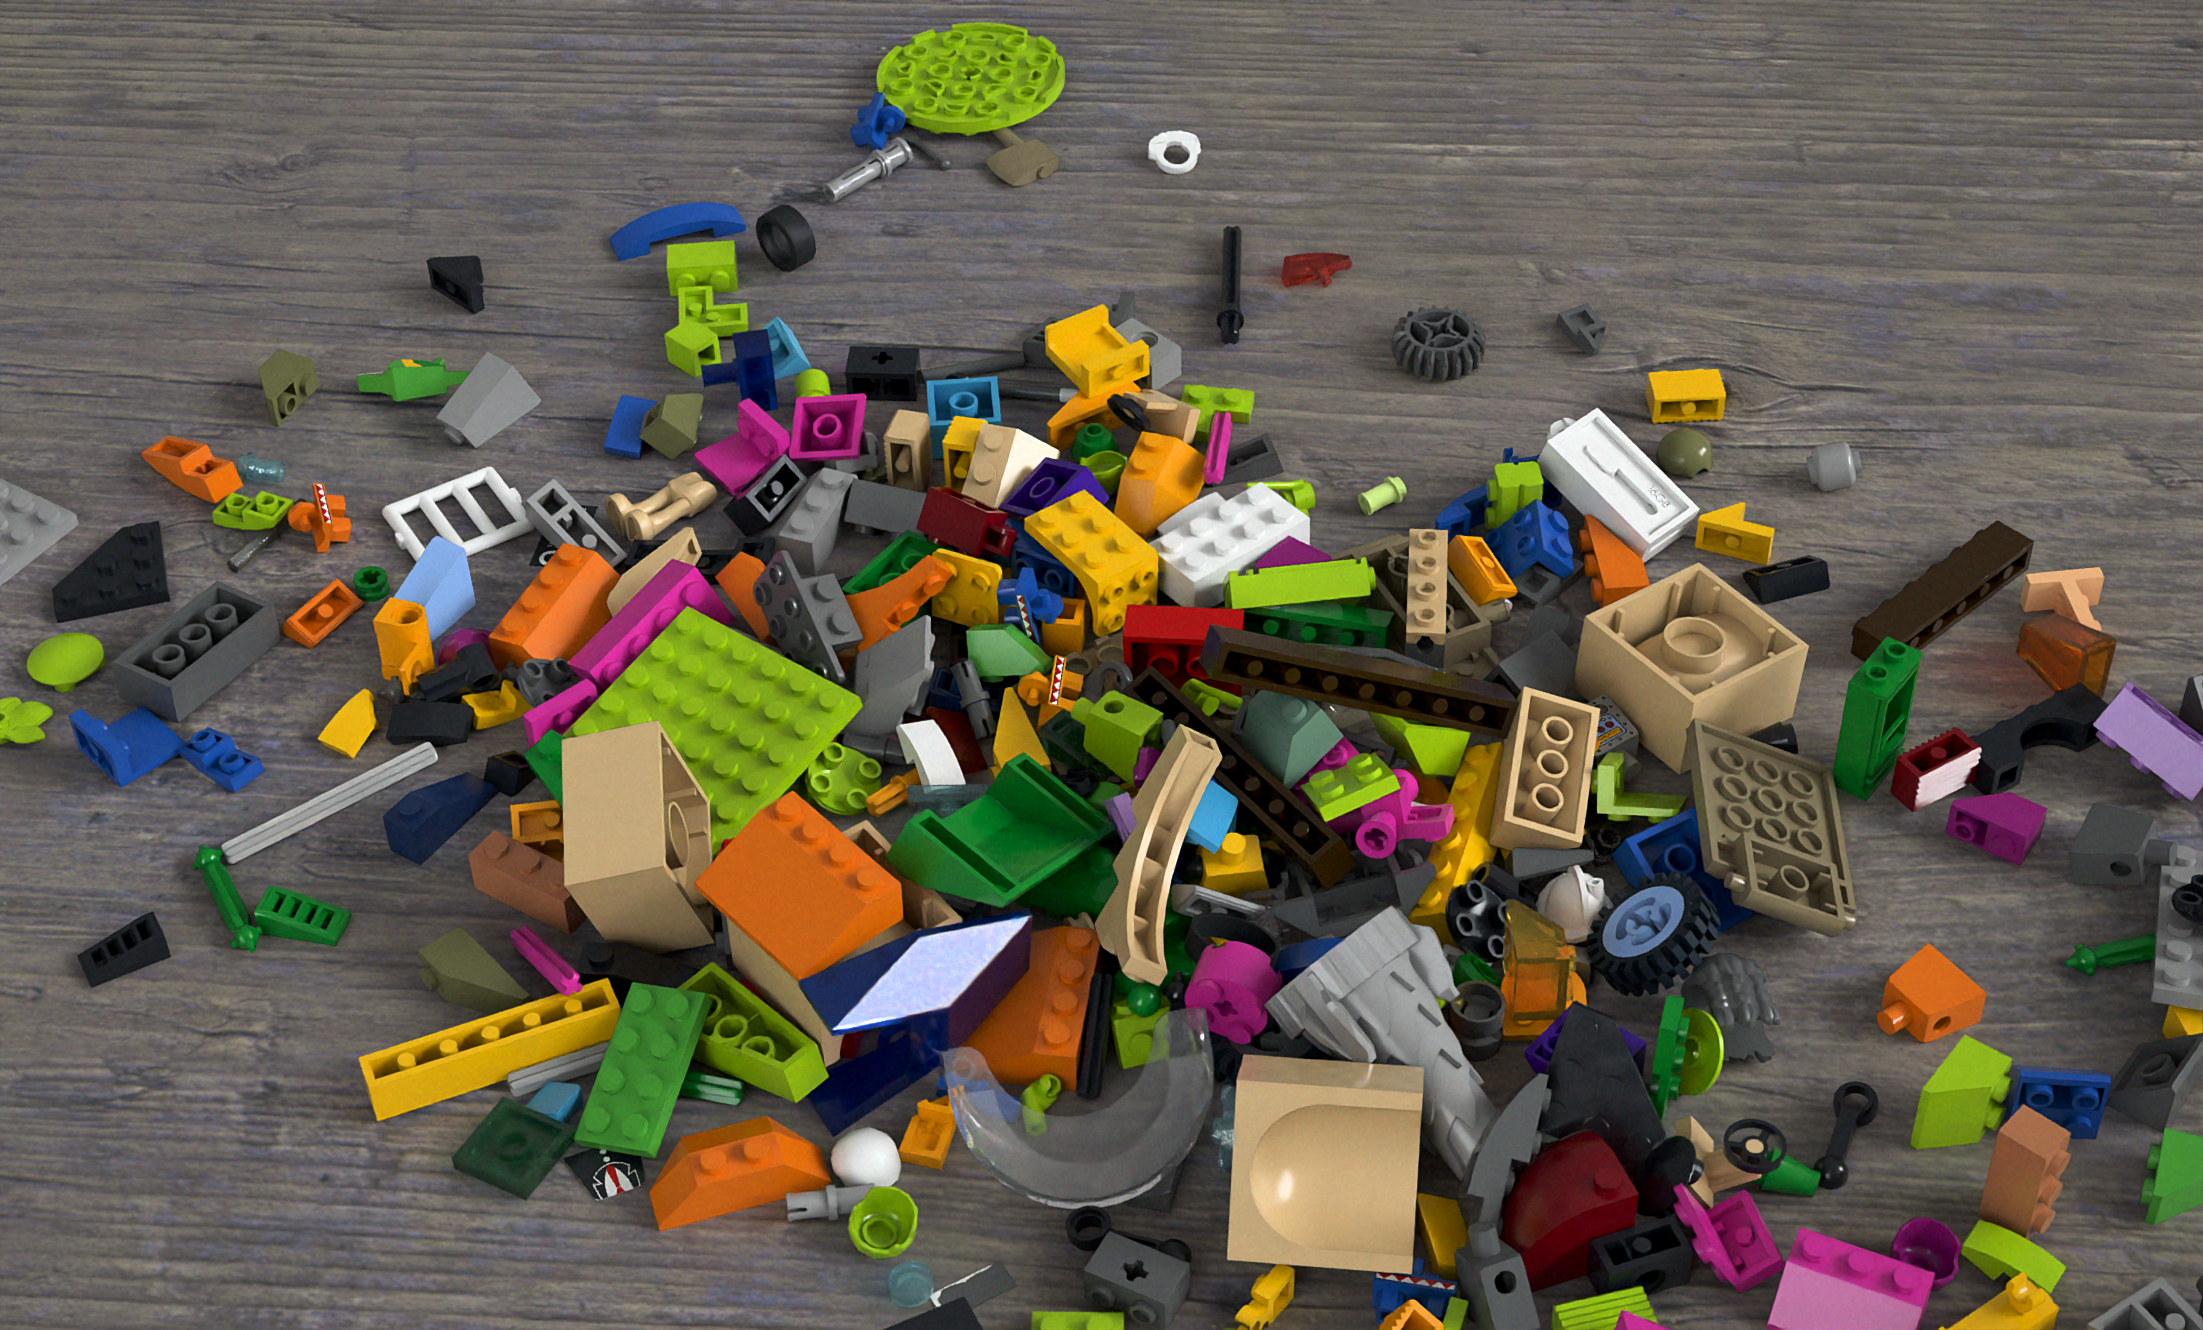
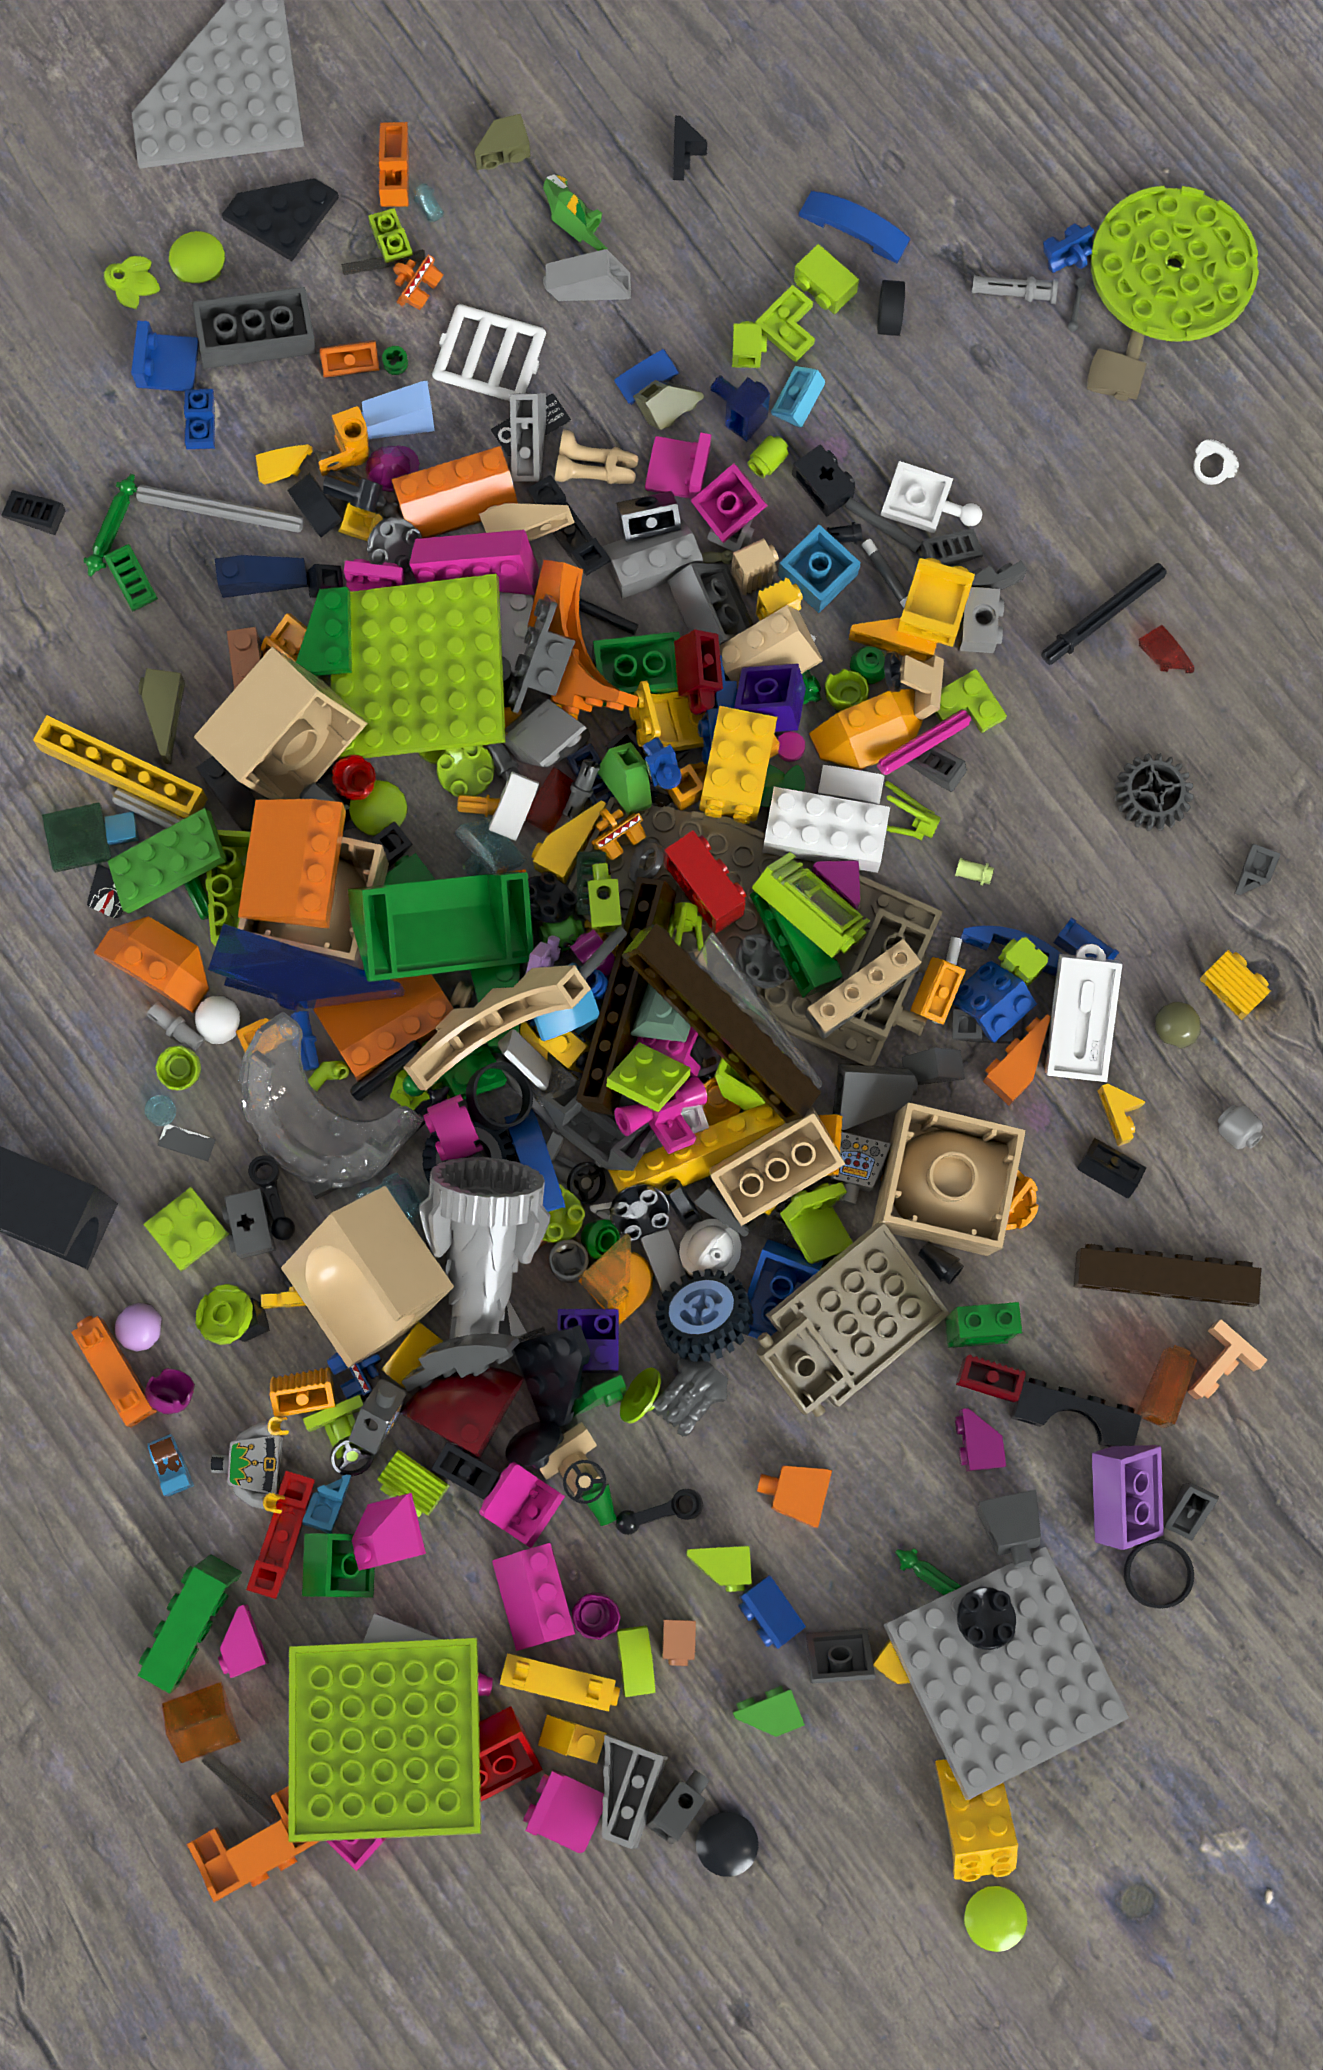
camera: 45 degrees right, 35 degrees up
(546, 960) = (191, 746): dark pink axle -> none
(984, 327) = (920, 497): none -> white plate

